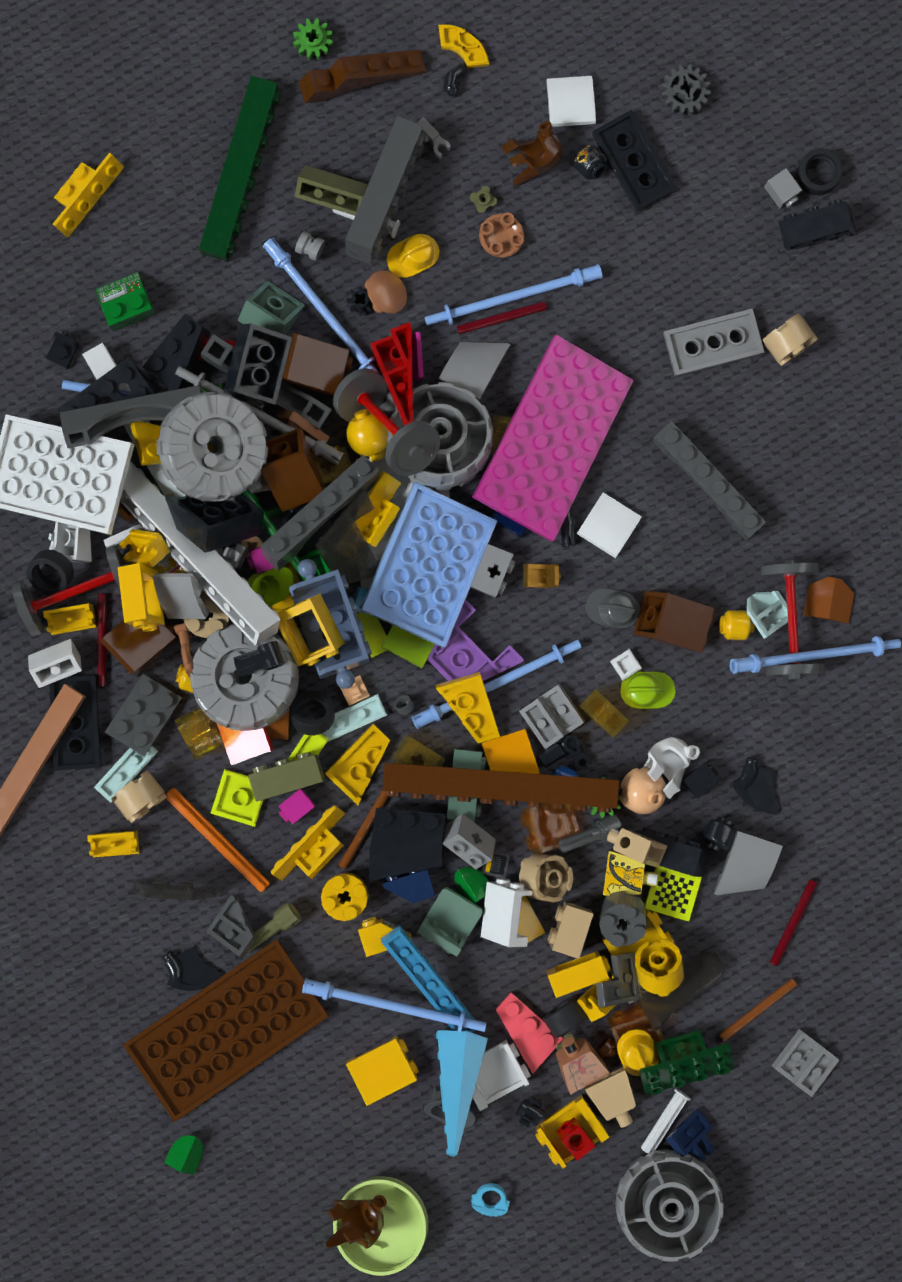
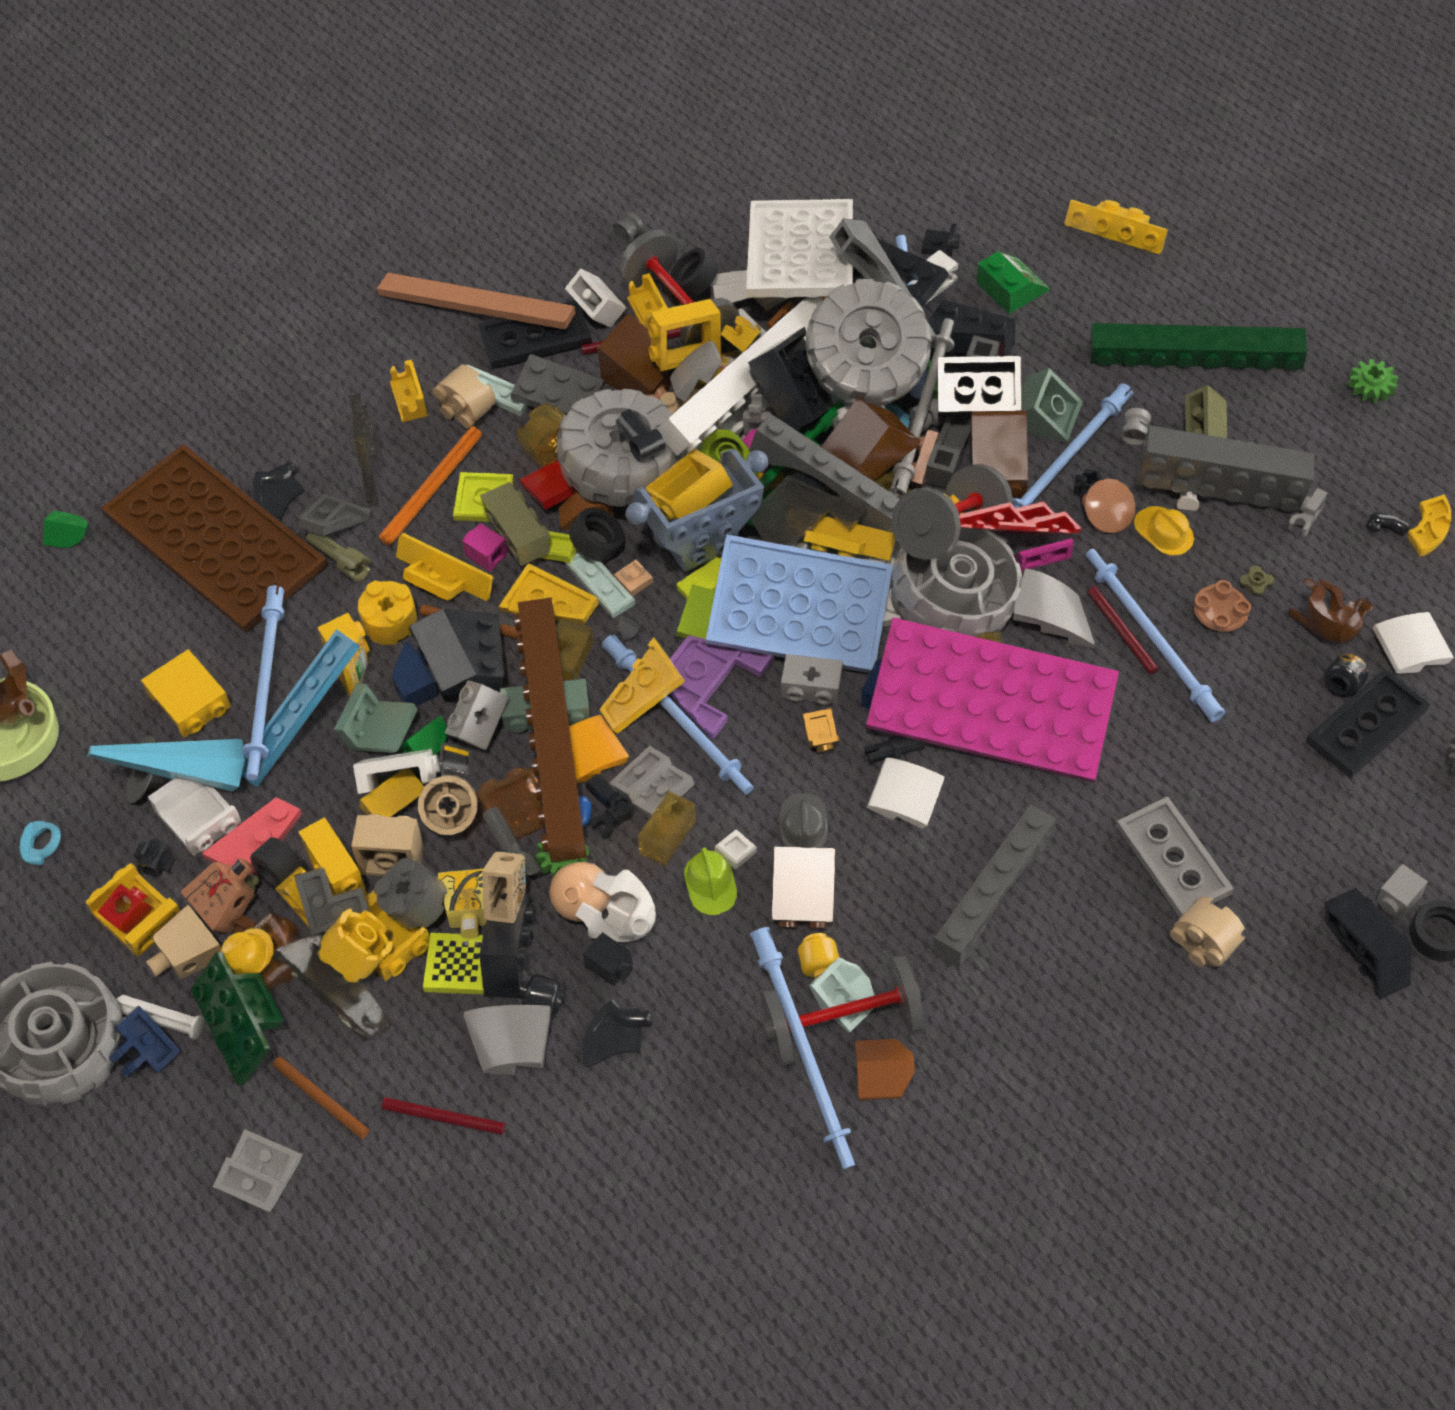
camera: 80 degrees right, 30 degrees down
(359, 71) = (1355, 424): reddish brown arch -> none

